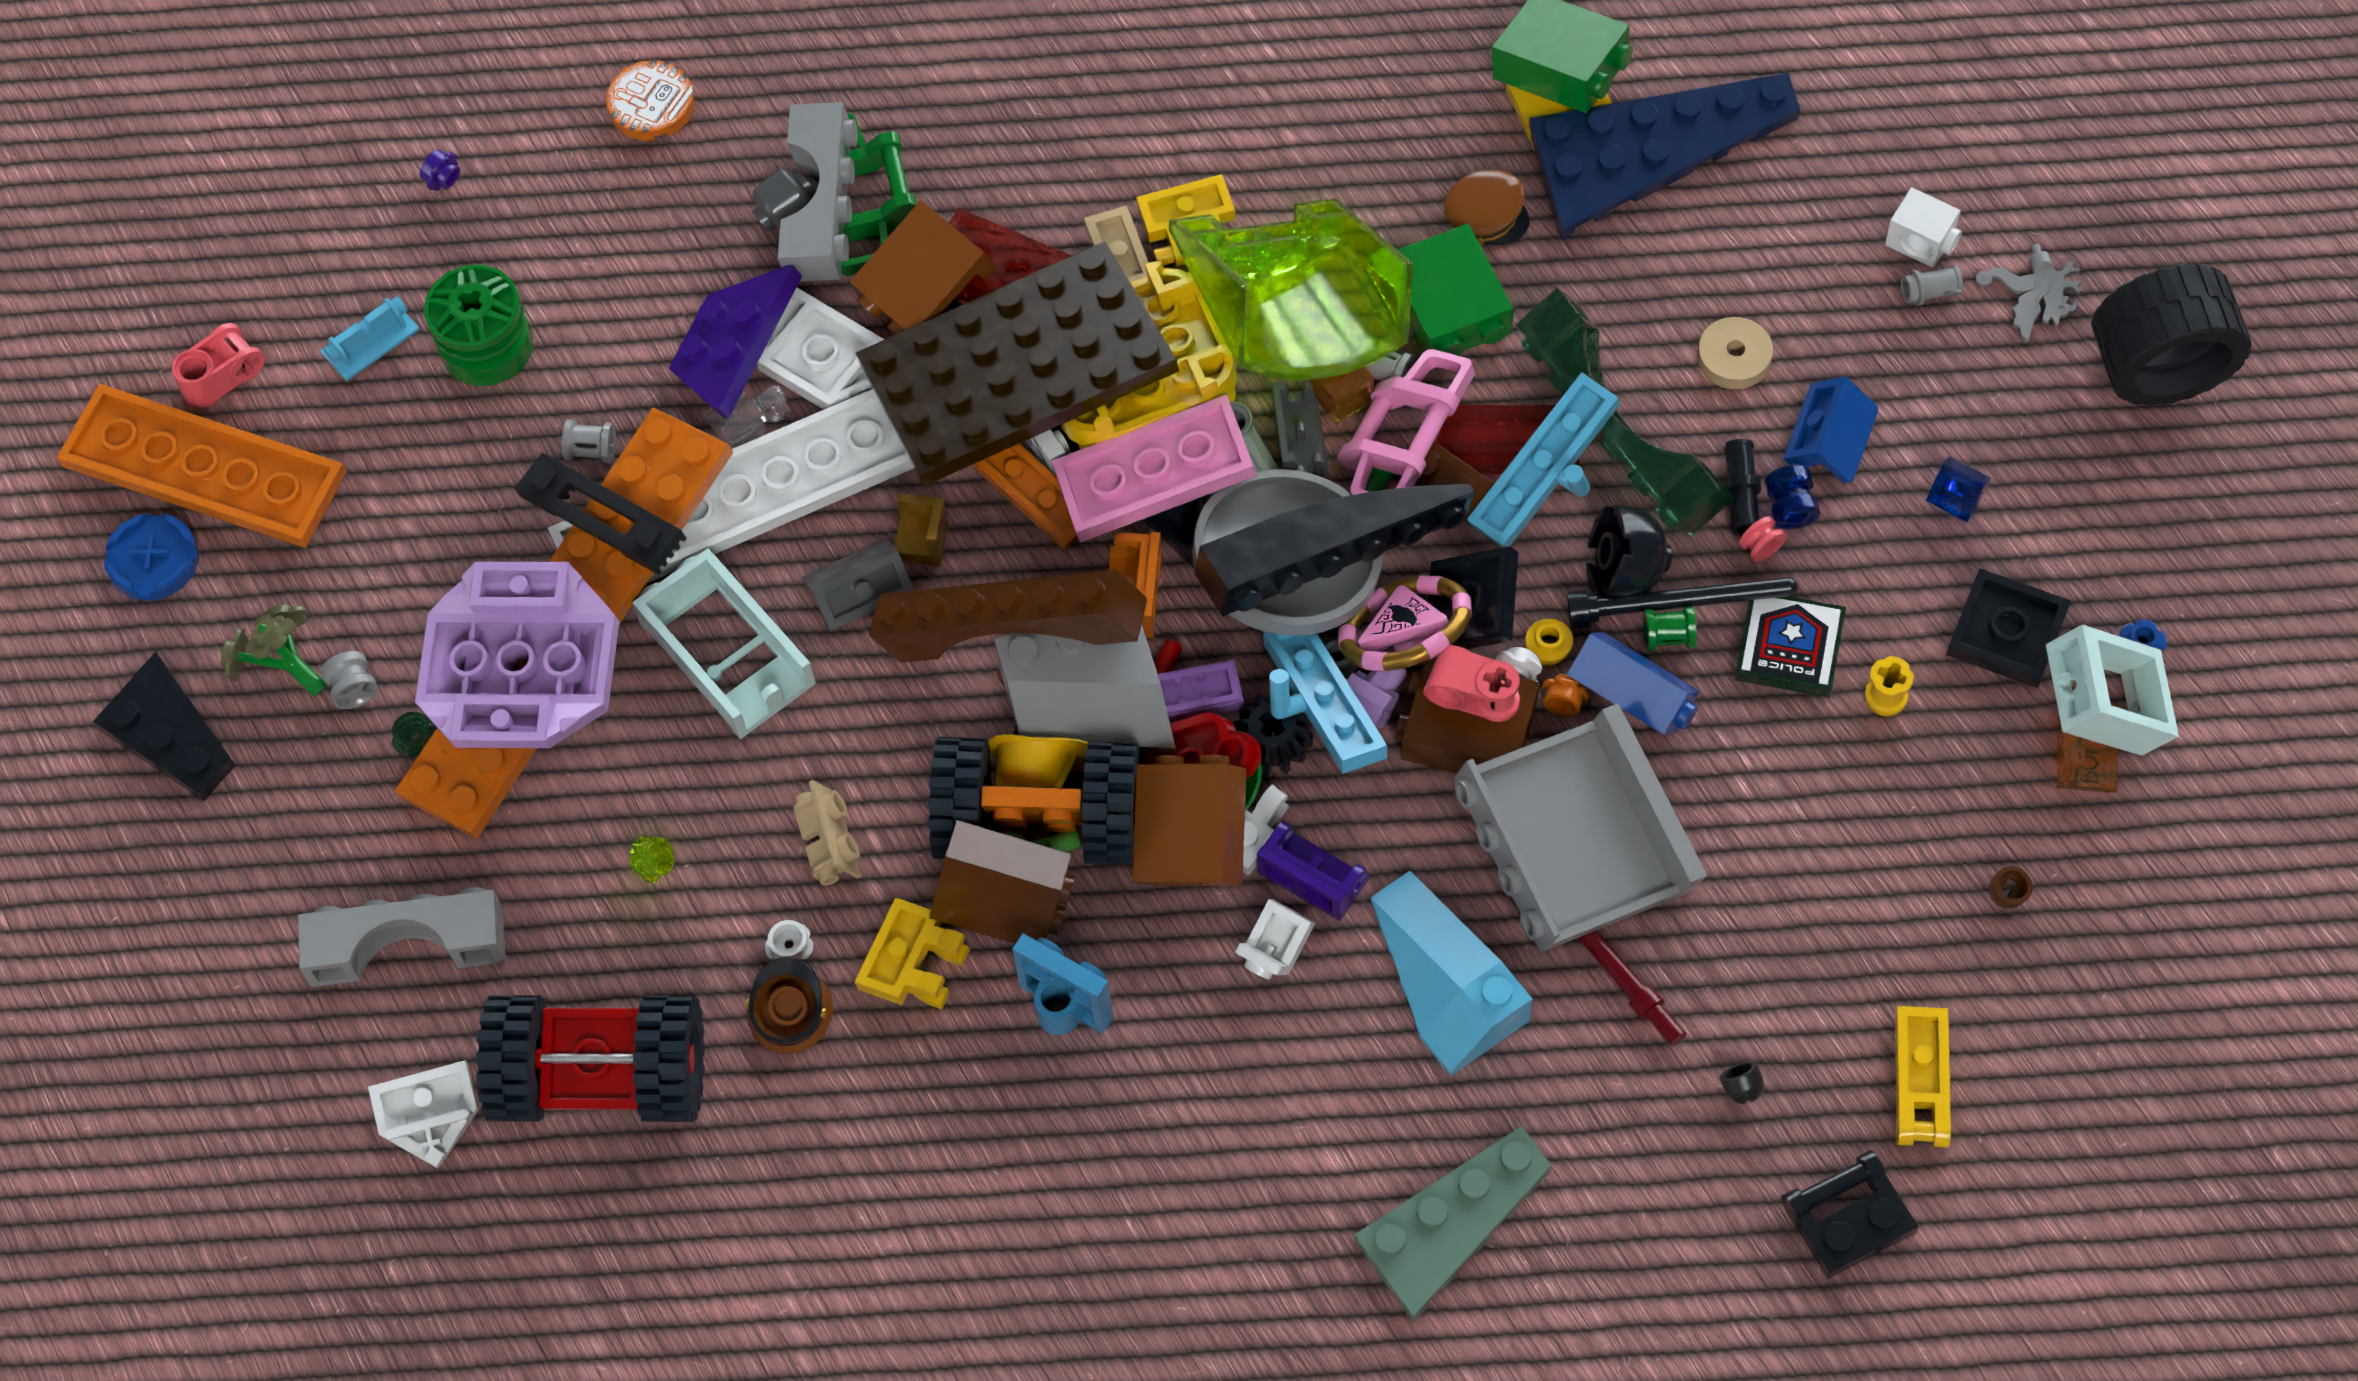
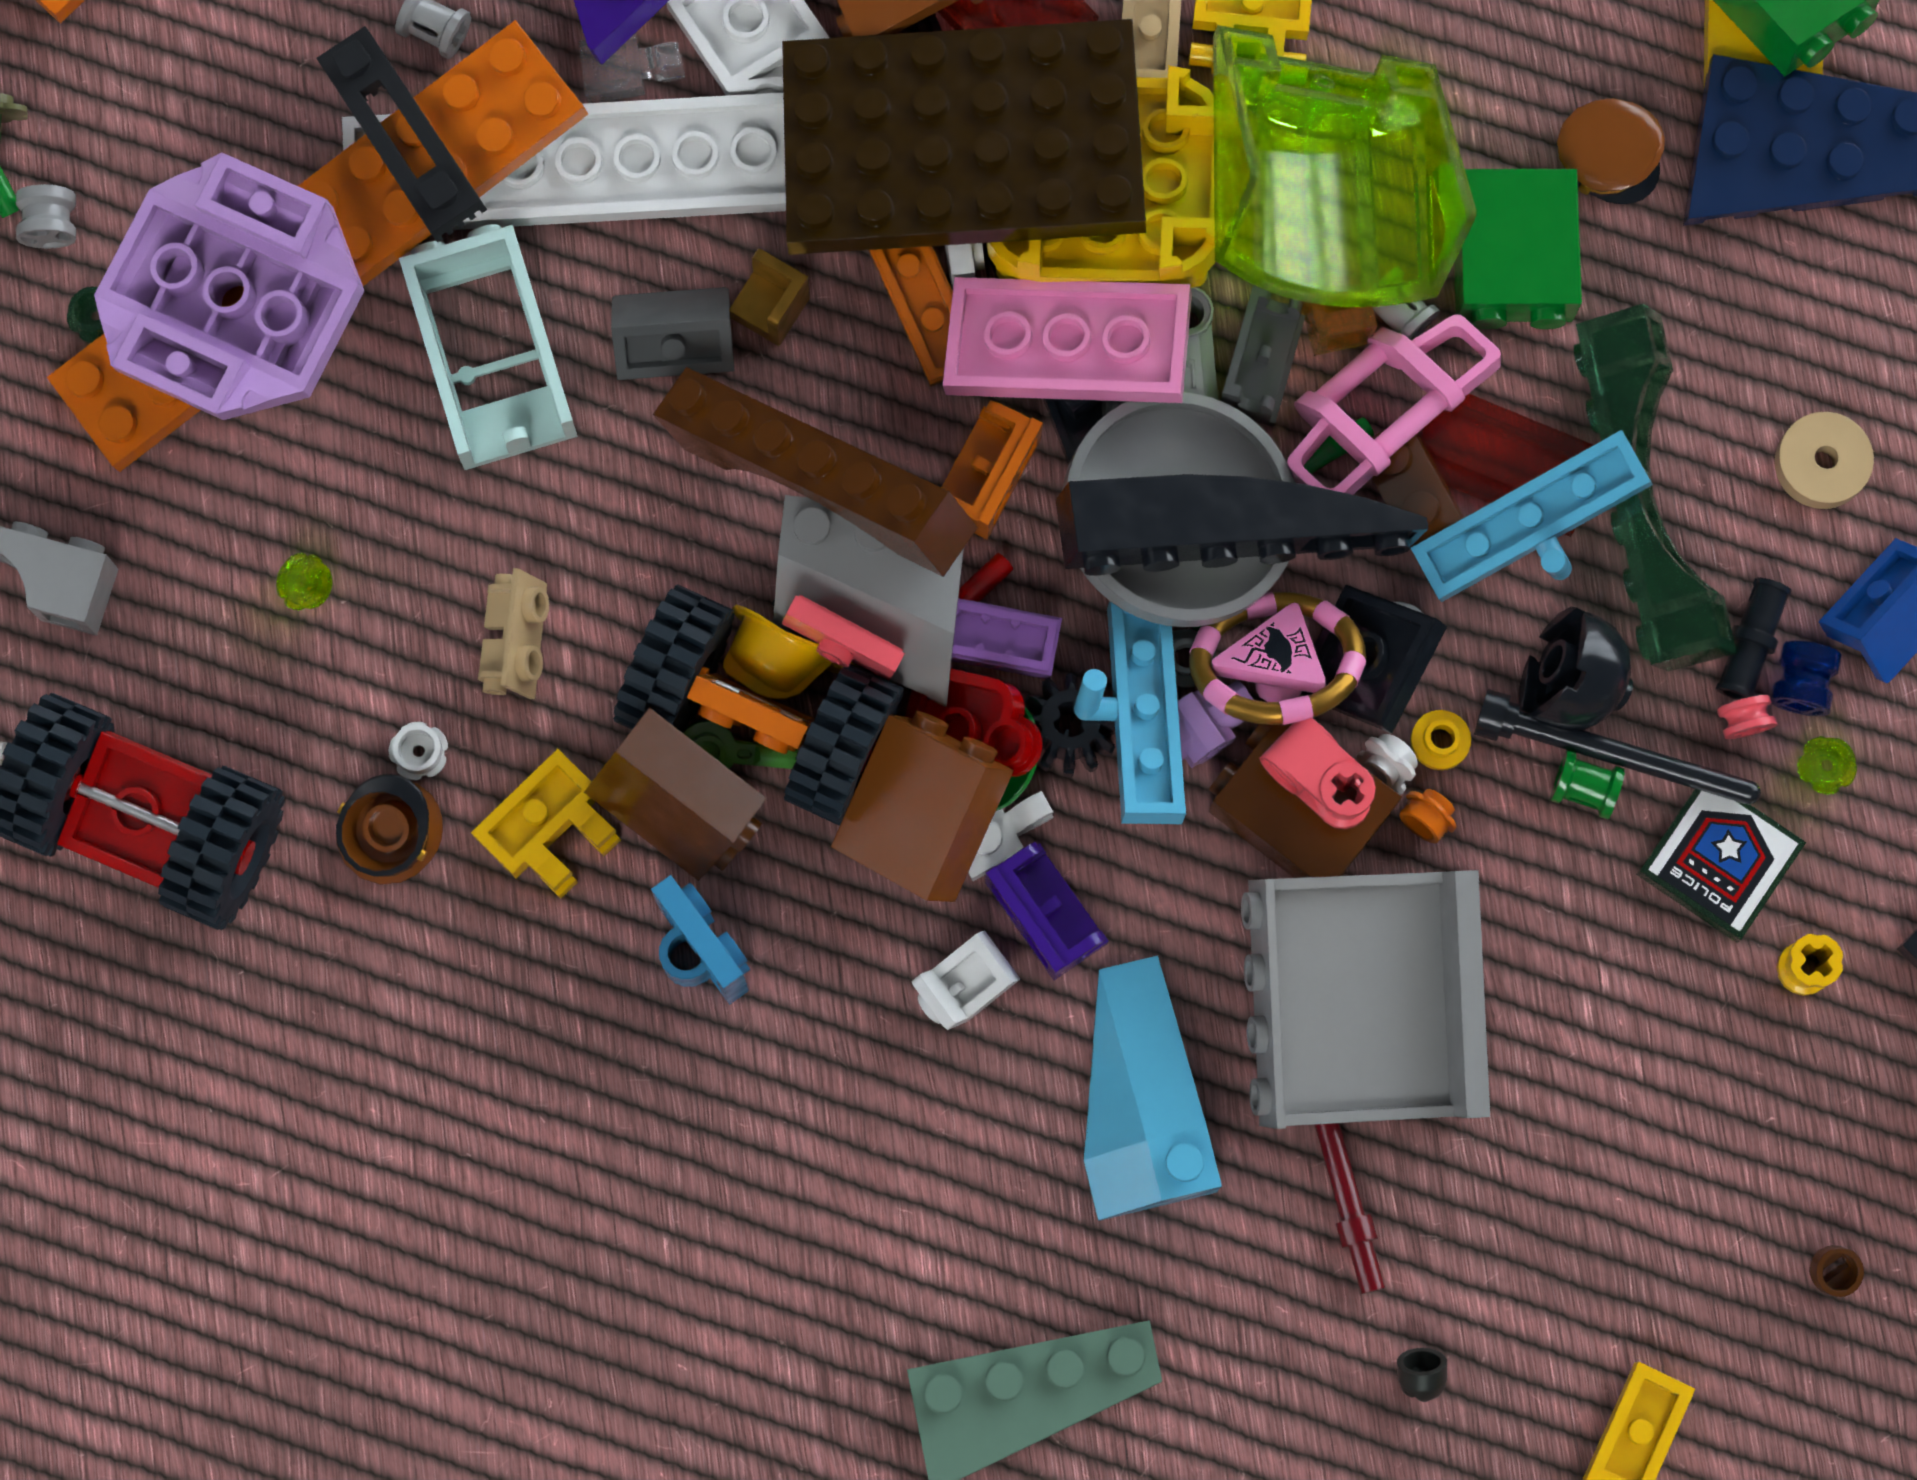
camera: 15 degrees right, 15 degrees up
(1079, 721) = (842, 639): none -> coral plate
(1634, 683) = (1514, 840): blue brick -> none
(1838, 539) = (1833, 750): none -> clear neon green plate

